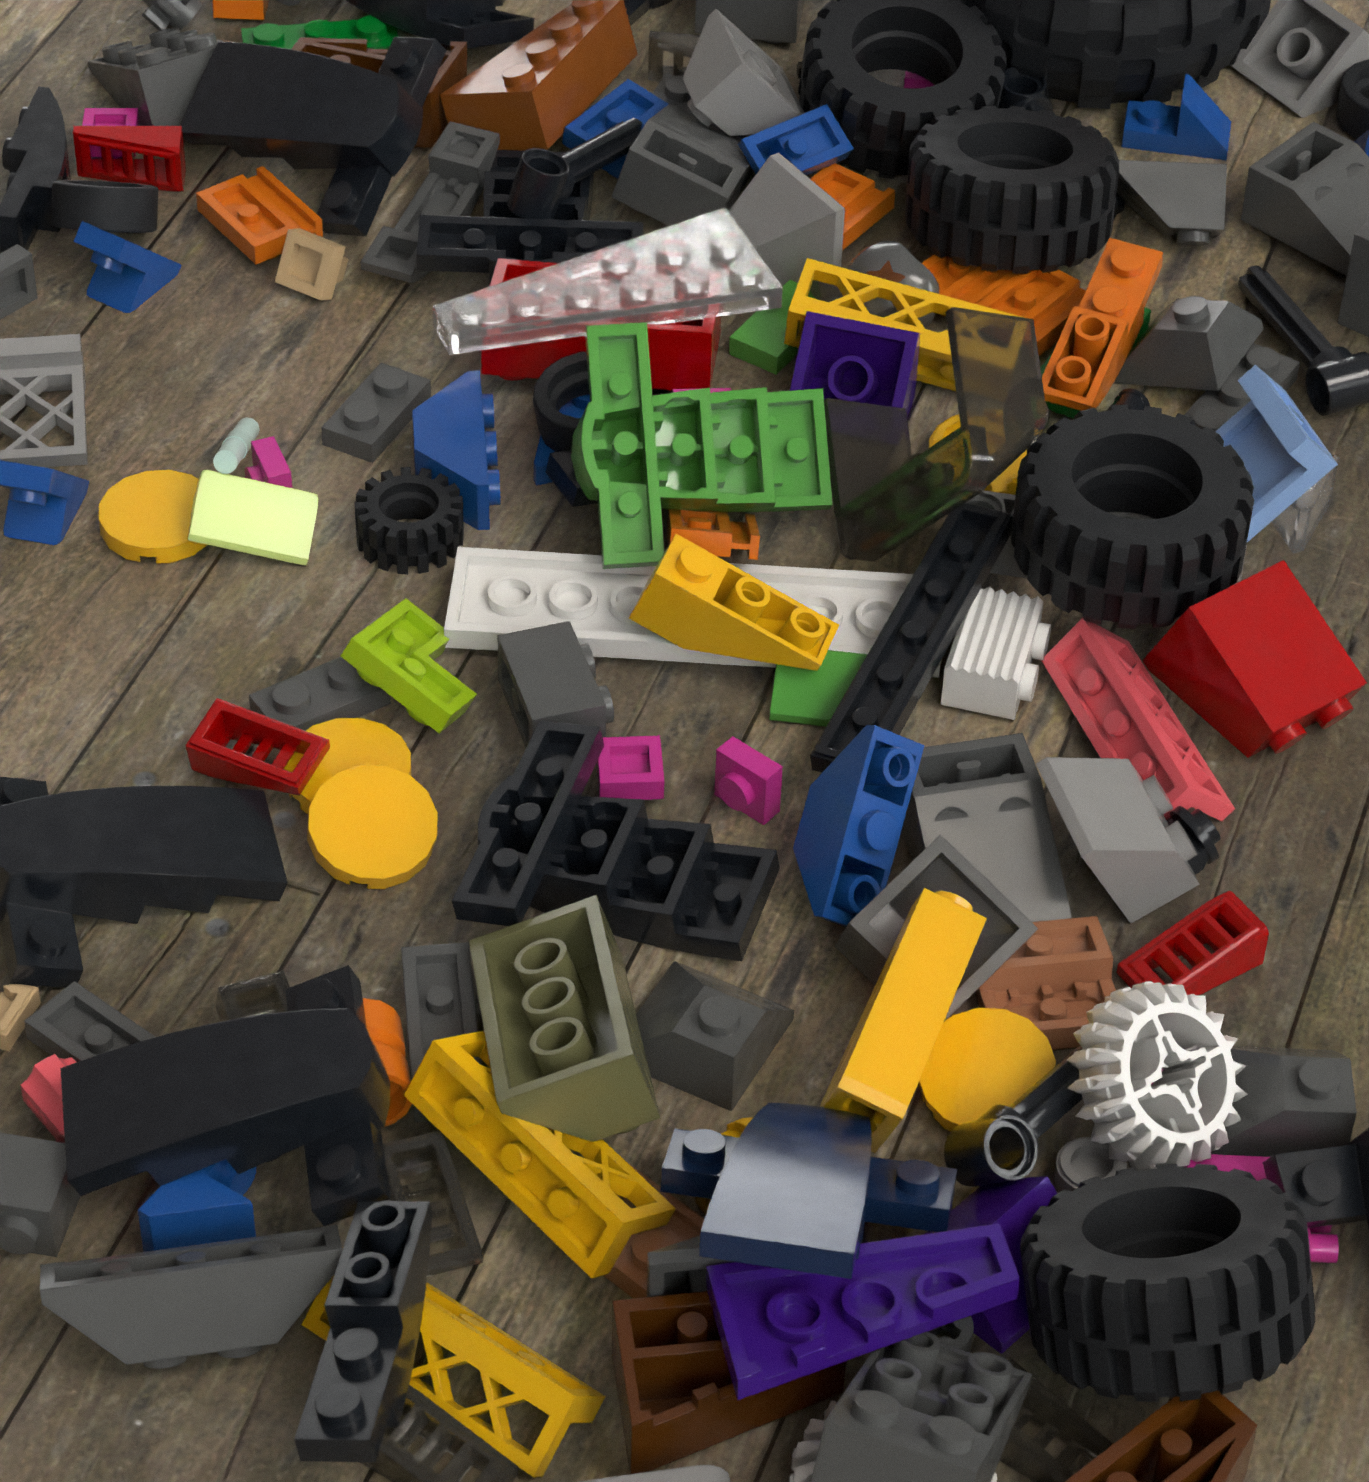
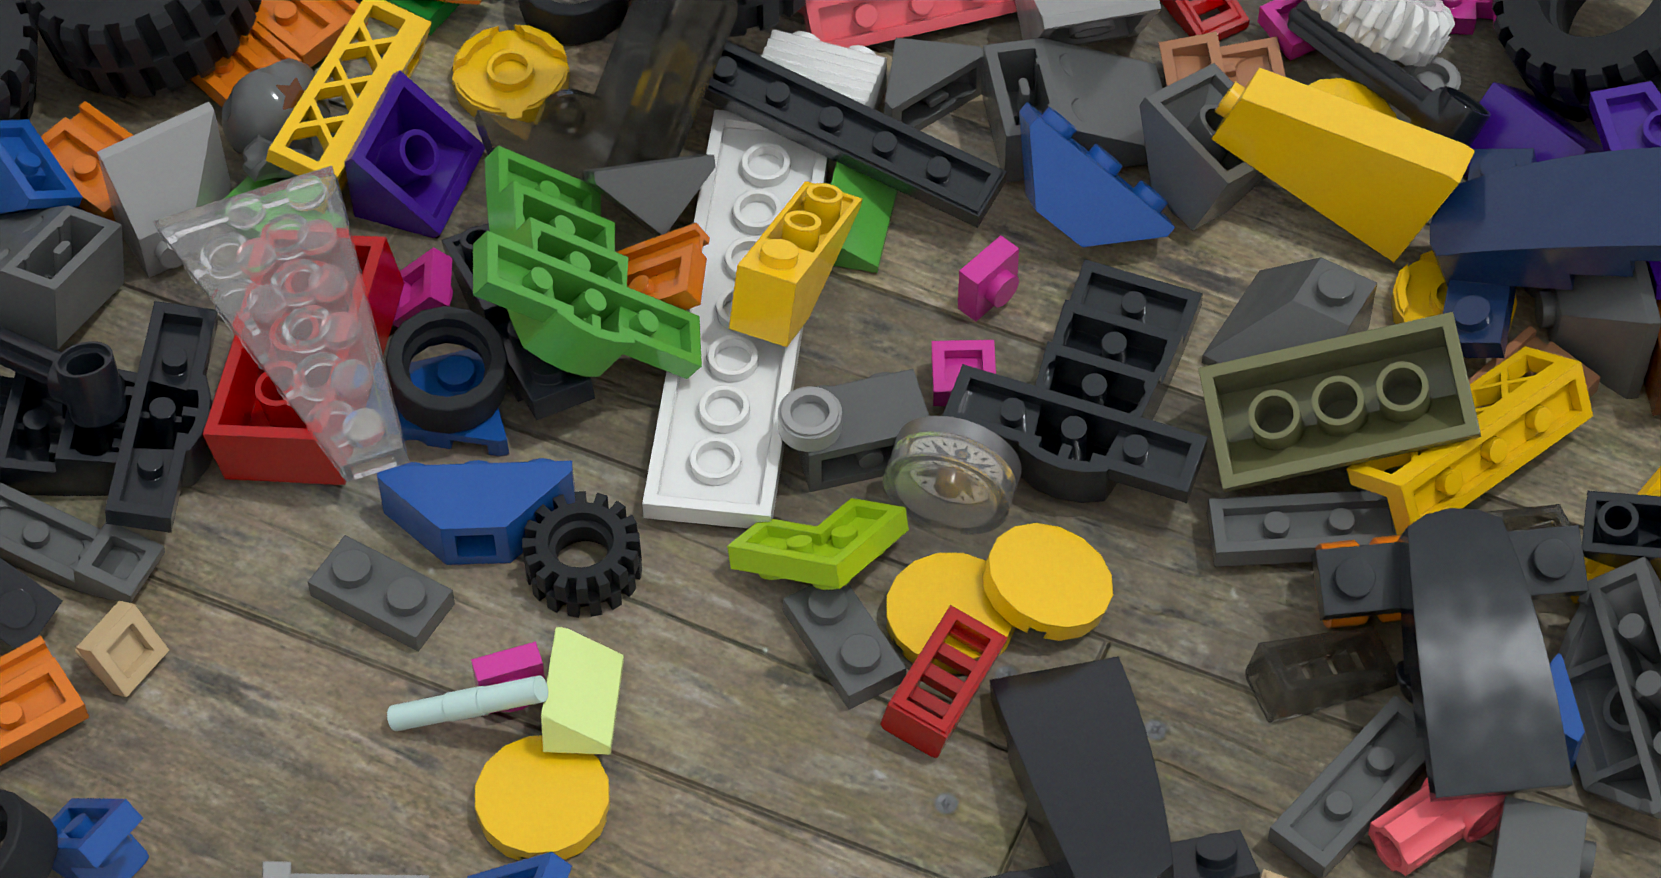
camera: 85 degrees left, 10 degrees up
(477, 734) = (952, 475): none -> clear piece
(532, 626) = (809, 419): none -> light grey tile
(819, 522) = (653, 190): none -> dark grey slope
(991, 710) = (931, 80): none -> dark grey slope

